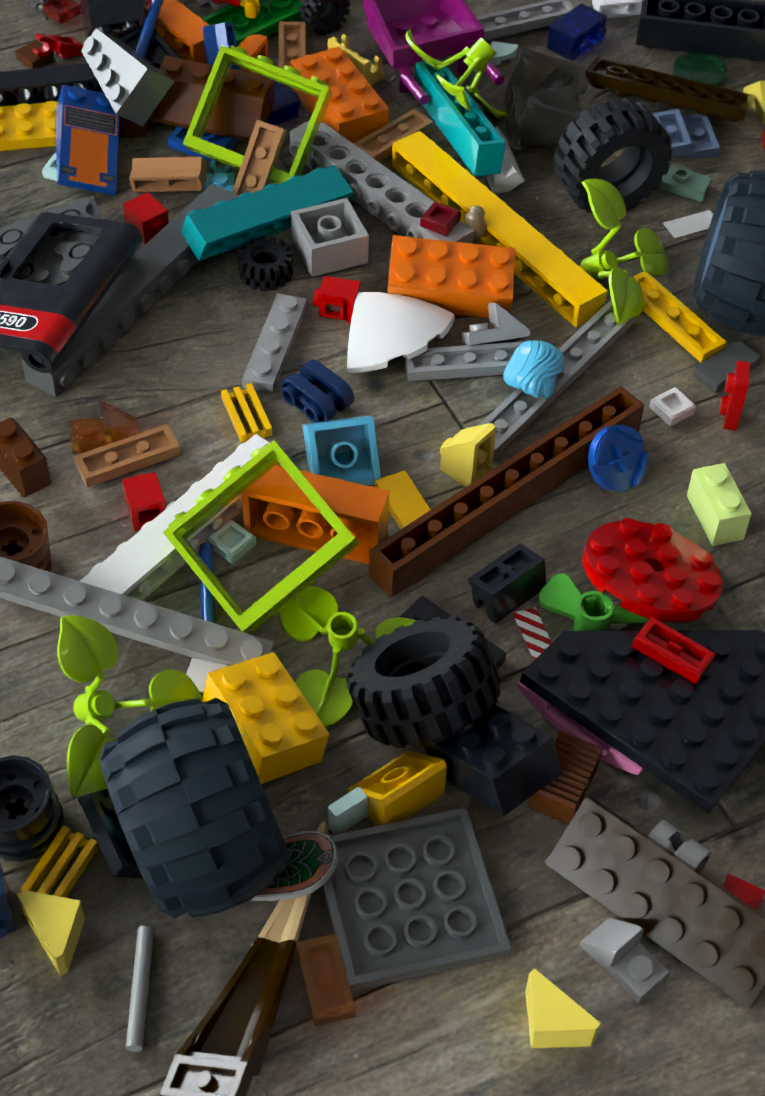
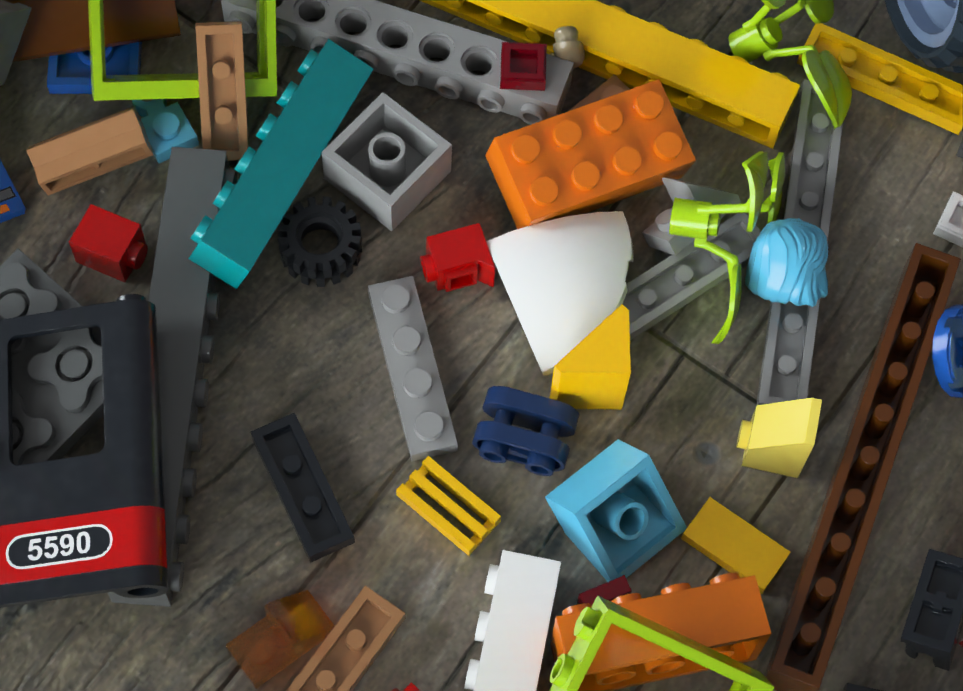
camera: 30 degrees left, 15 degrees up
(168, 368) = (302, 487): none -> black plate
(378, 371) = (598, 368): none -> yellow slope
(491, 322) = (702, 218): none -> lime plant

